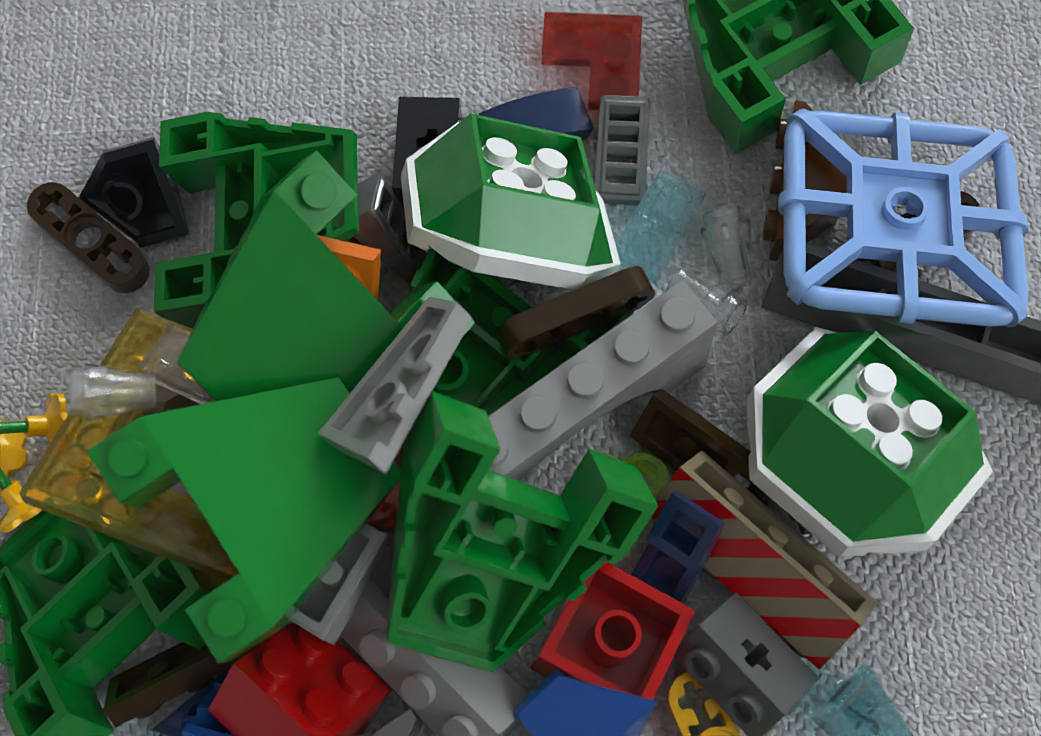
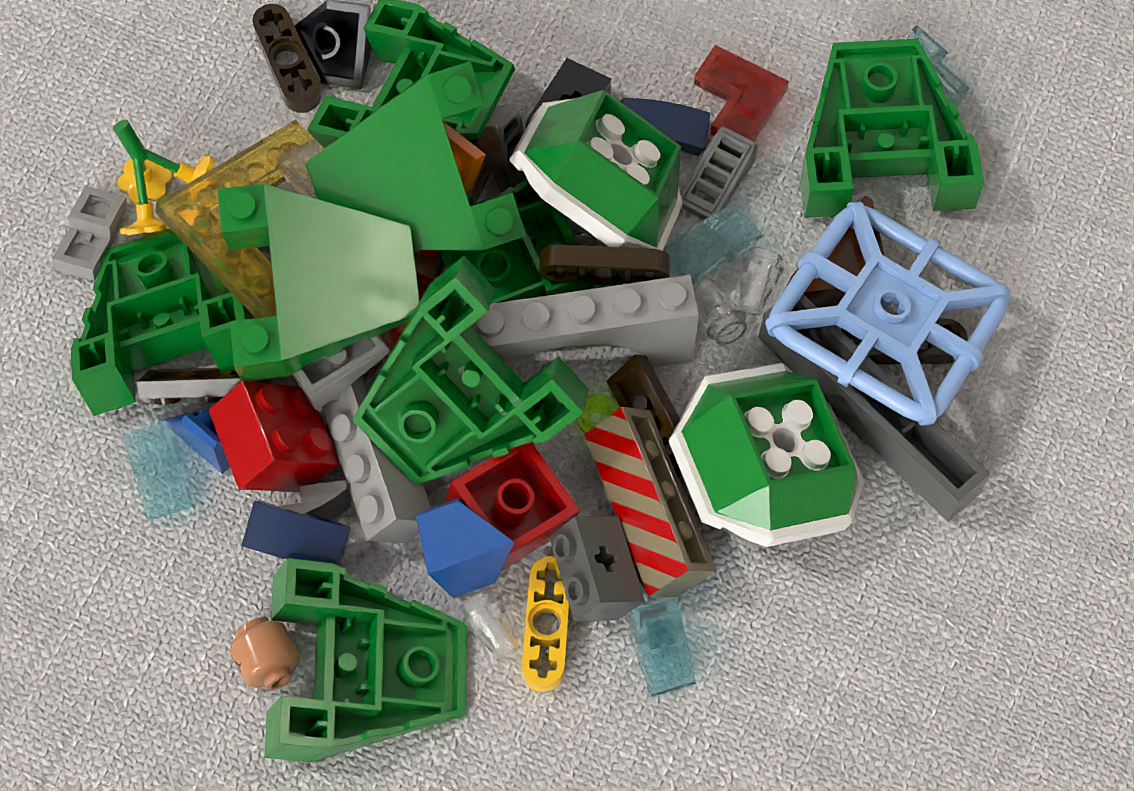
camera: 20 degrees right, 5 degrees down
(109, 391) = (248, 163): clear cone -> none
(394, 390) = (444, 244): light grey wing -> none
(678, 547) = (595, 466): dark blue slope -> none

